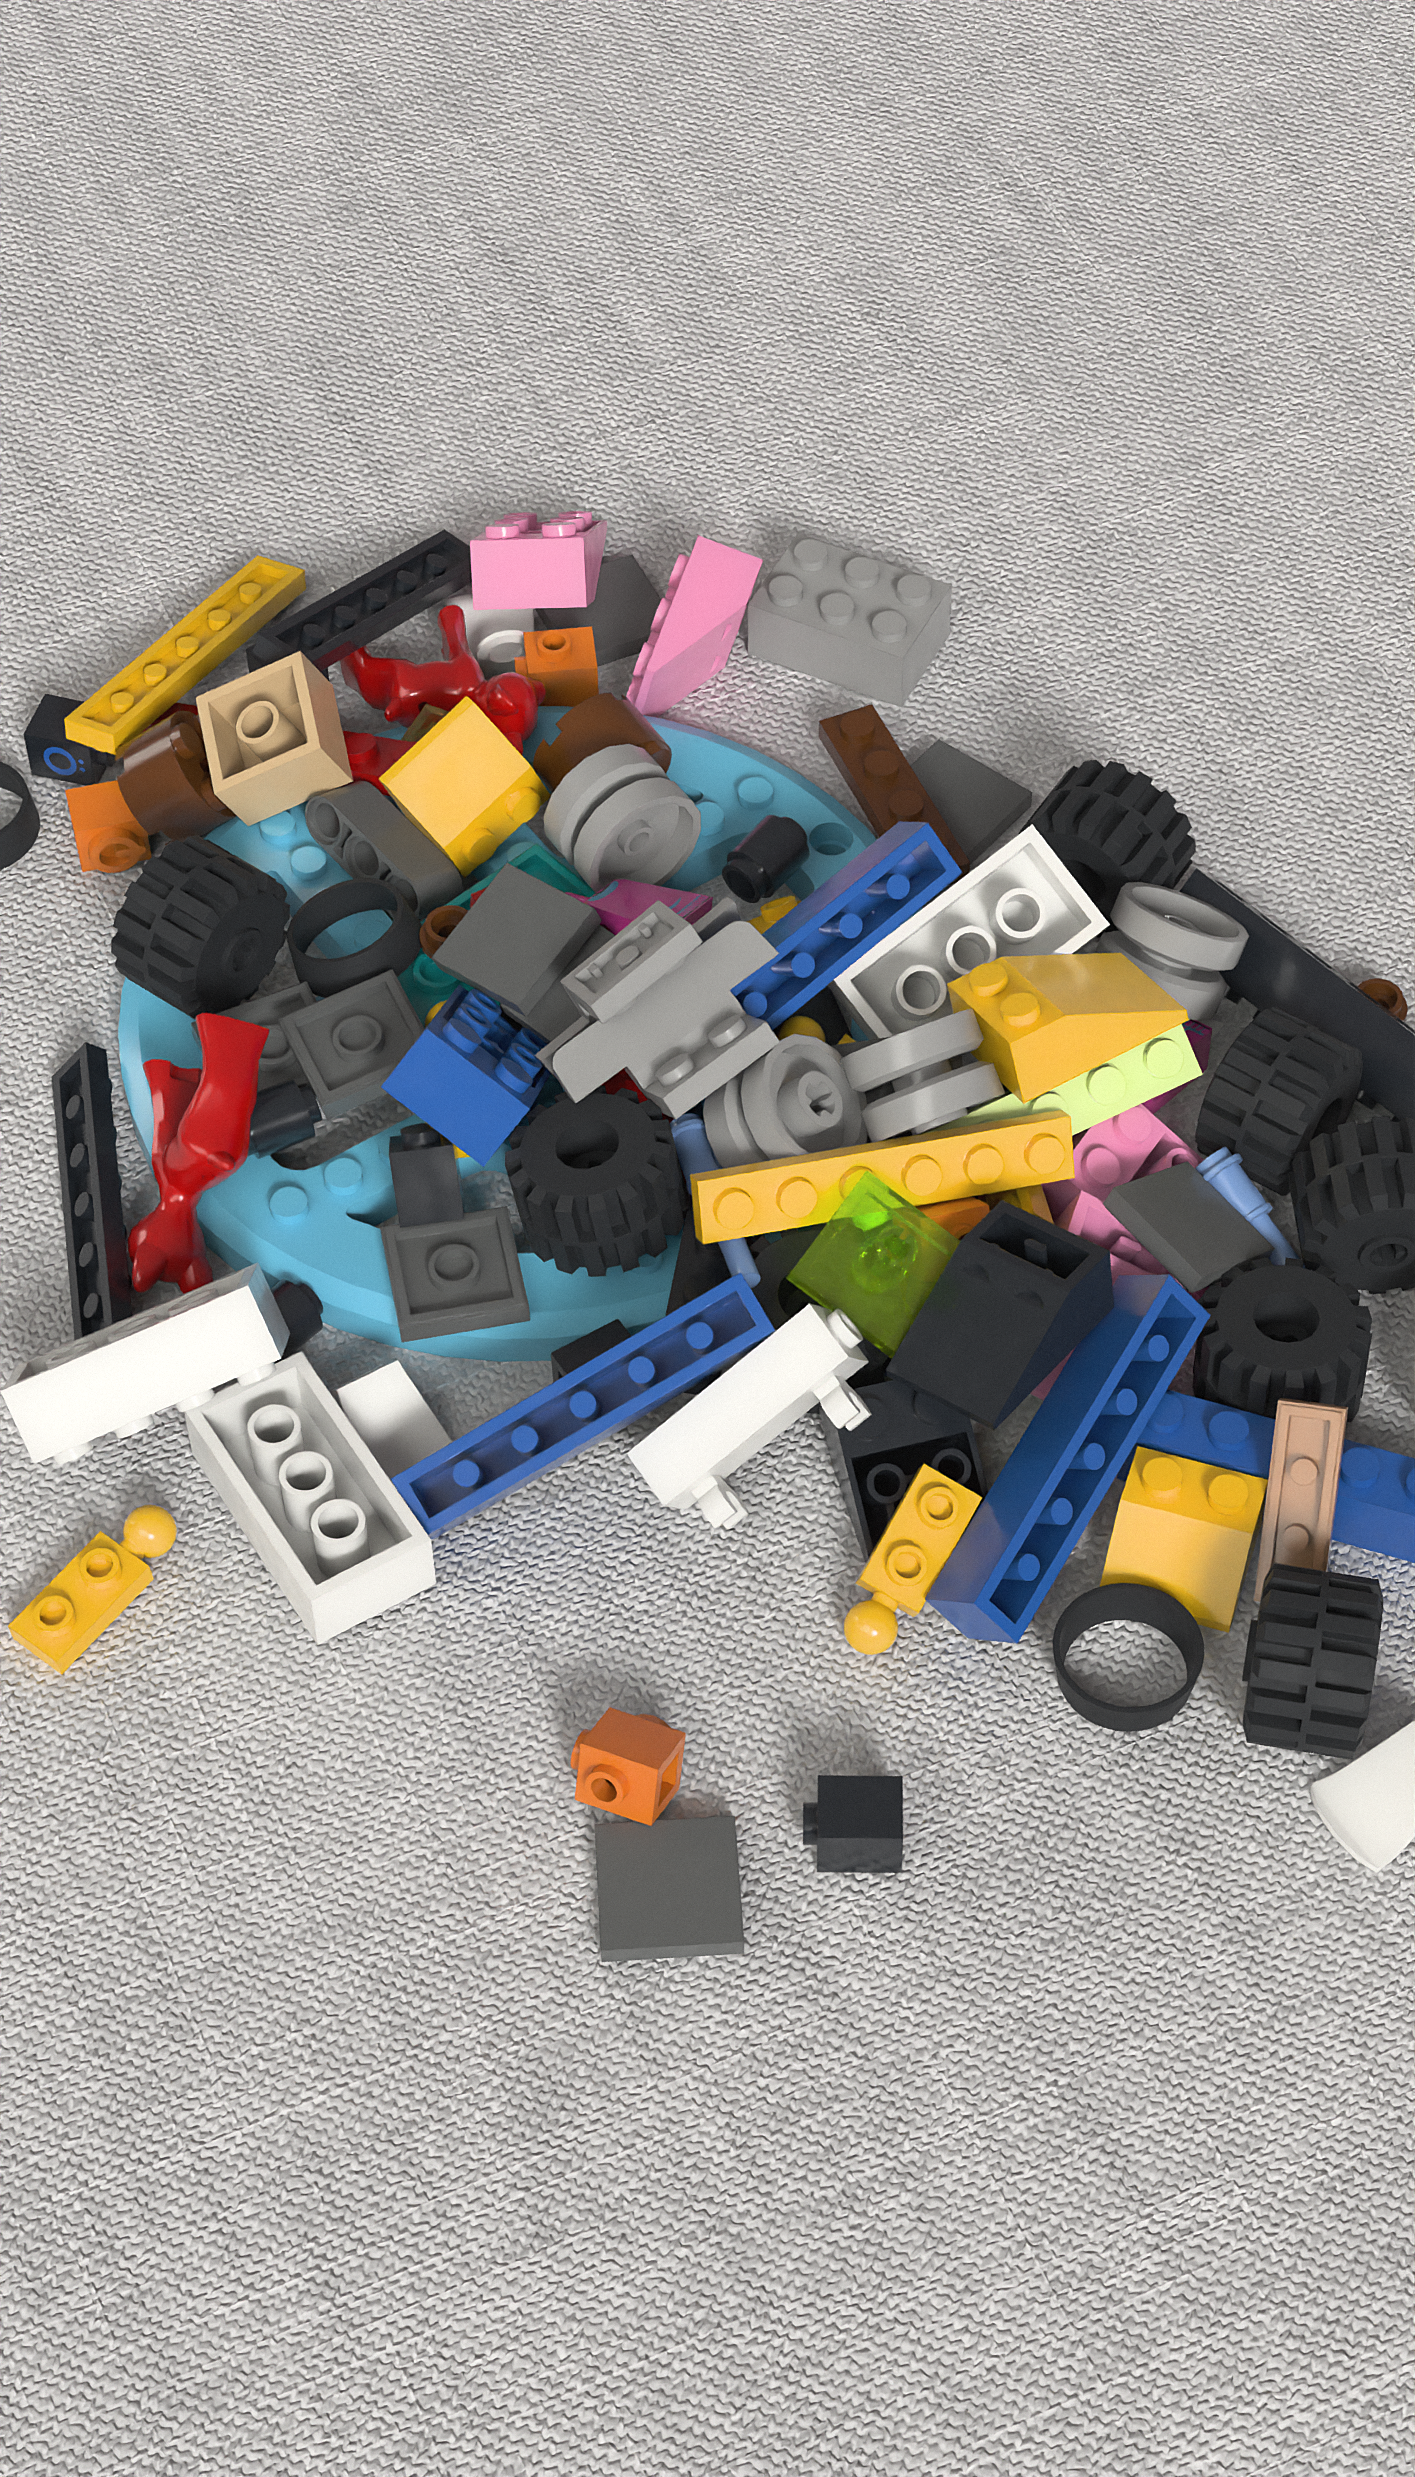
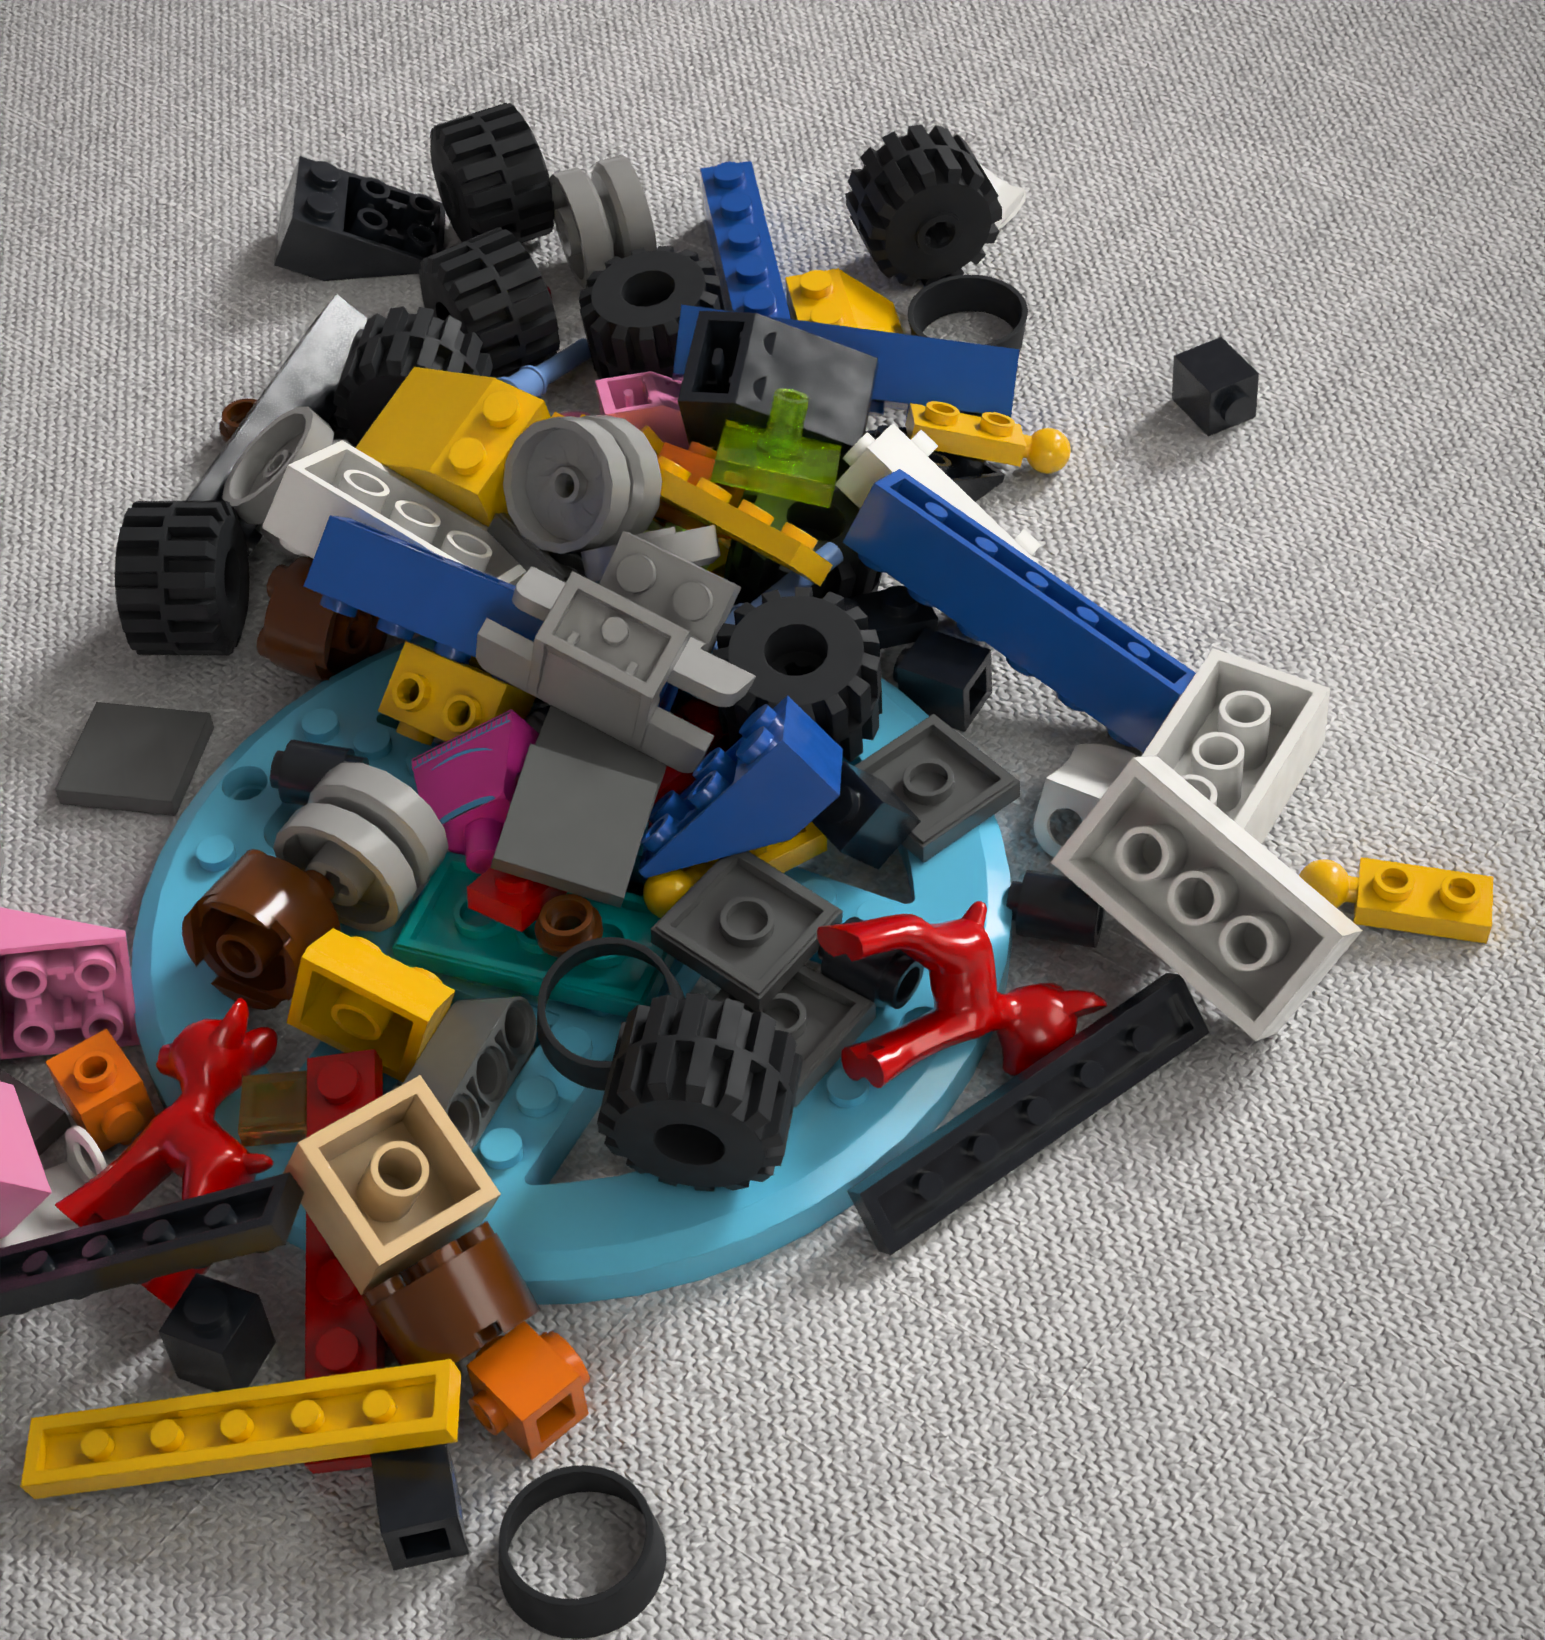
camera: 115 degrees left, 5 degrees down
(628, 1765) = (1279, 500): orange brick -> none
(668, 1889) = (1343, 466): dark grey tile -> none
(882, 777) = (156, 777): reddish brown plate -> none
(1187, 1225) = (593, 372): dark grey tile -> none
(1302, 1486) = (776, 247): tile -> none

